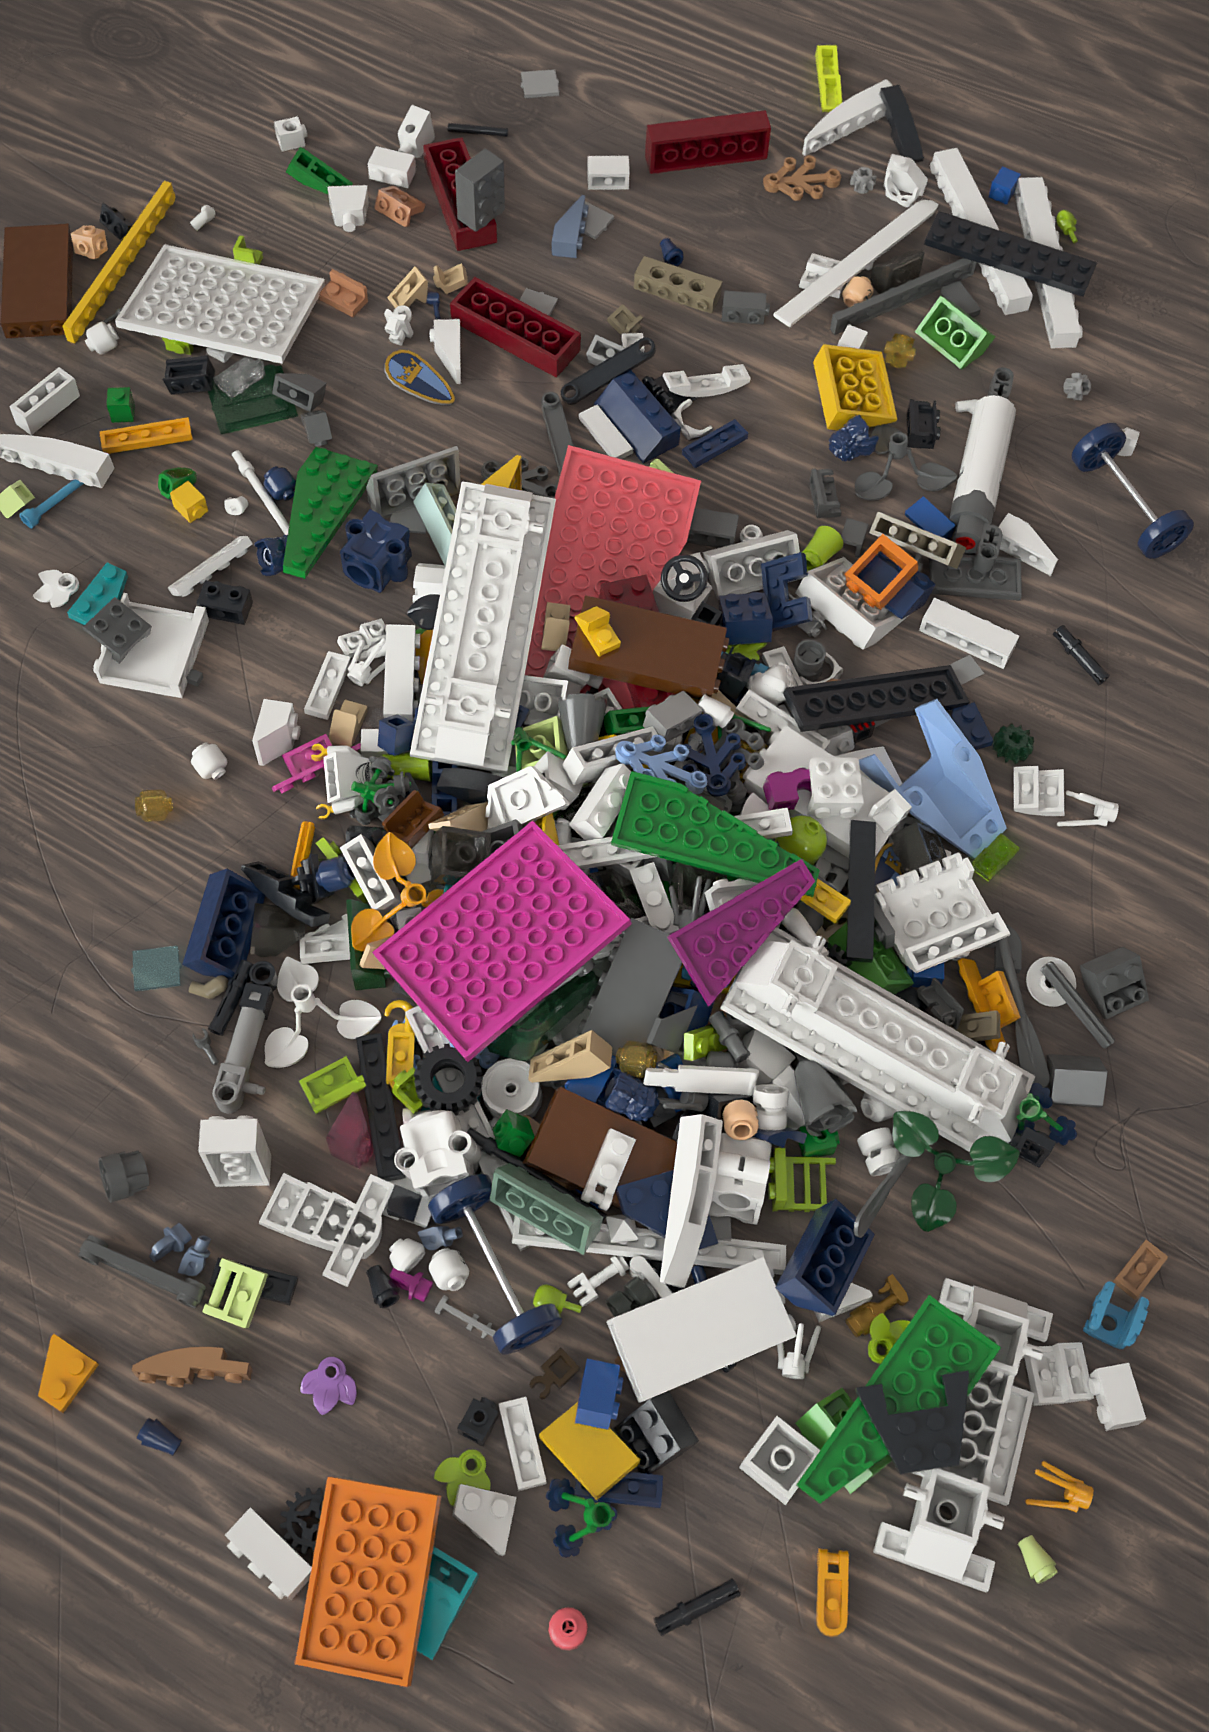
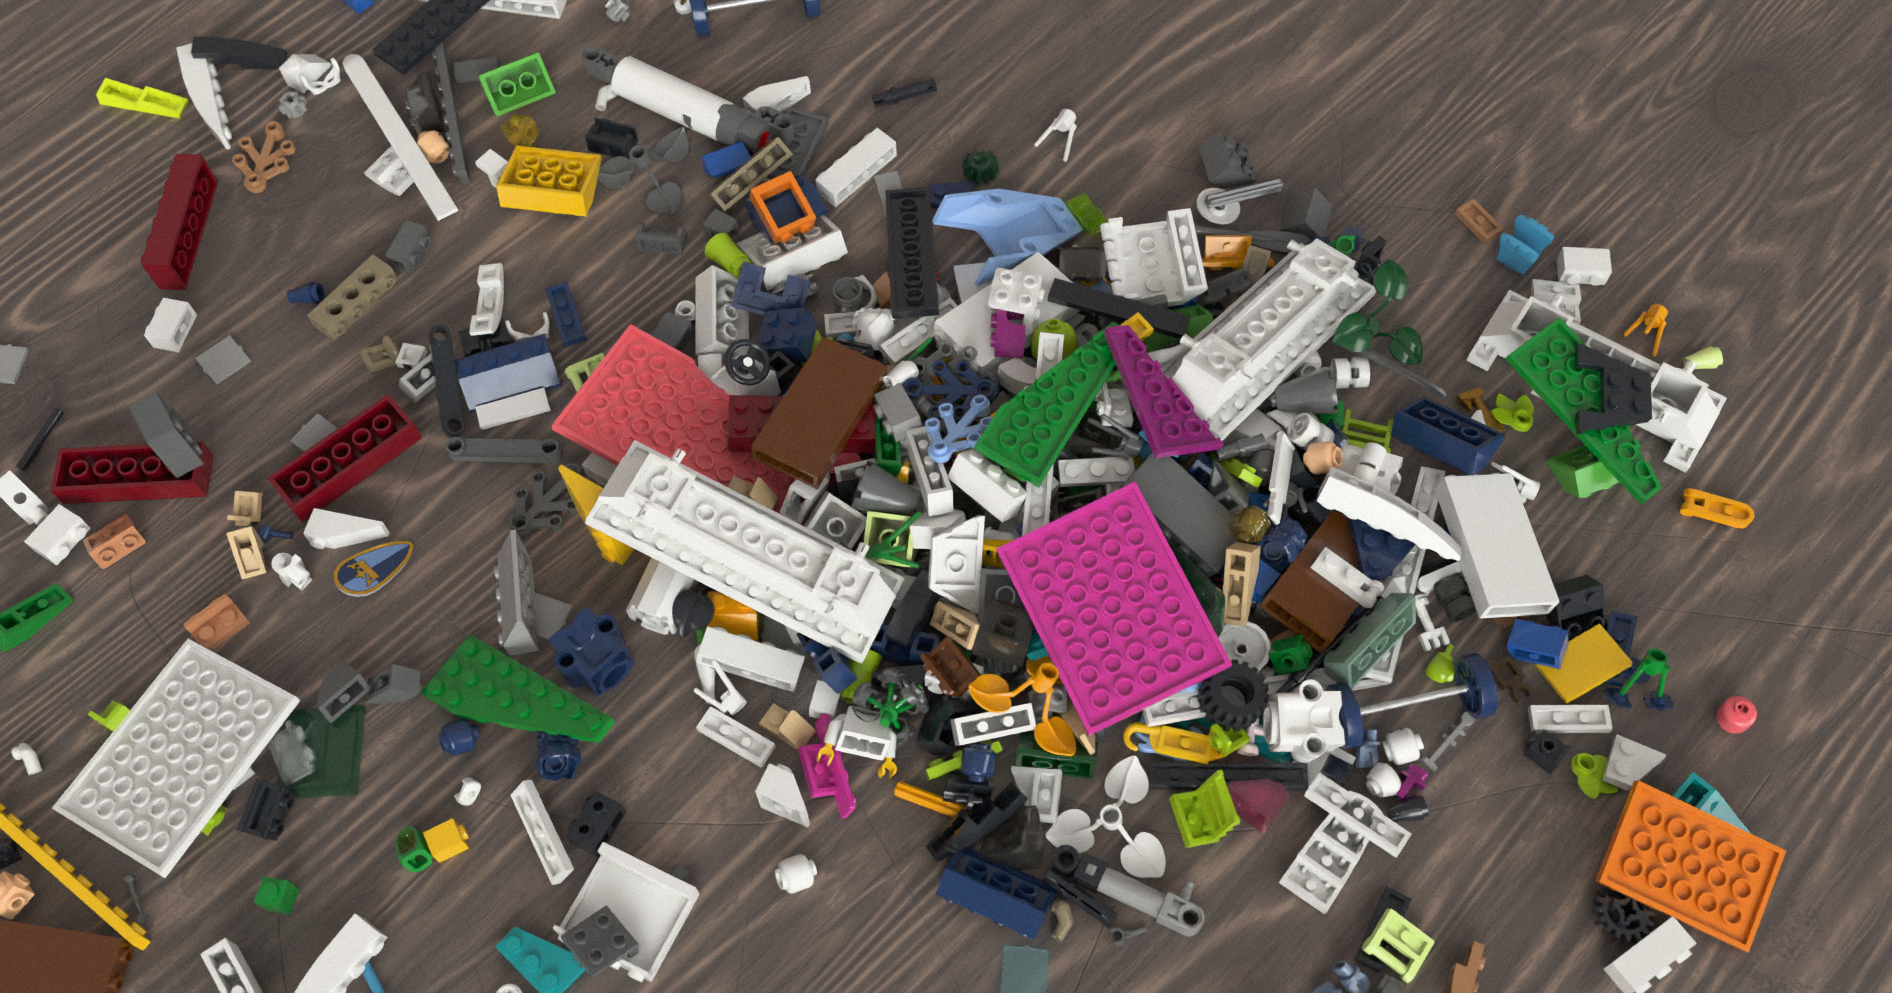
camera: 70 degrees left, 0 degrees up
(101, 338) = (164, 903): white head -> none
(146, 435) = (331, 875): light orange plate -> none
(153, 805) = (833, 942): clear yellow head -> none
(235, 1151) = (1271, 907): white brick -> none
(248, 471) = (423, 771): white bar -> none
(328, 1389) = (1498, 877): medium lavender plate -> none
(348, 205) = (90, 593): white torso -> none
(371, 632) = (685, 680): white slope -> none
(437, 515) = (580, 580): light aqua brick -> none
(567, 231) = (241, 382): sand blue slope -> none
(598, 630) = (794, 443): yellow slope -> none
(702, 1604) = (1725, 621): black pin -> none
(779, 1460) = (1611, 515): white brick -> none
(852, 440) = (611, 195): dark blue hair -> none
(889, 811) = (1043, 263): white panel -> none
(967, 203) = (372, 28): white brick -> none
(1039, 791) = (1030, 163): white slope -> none

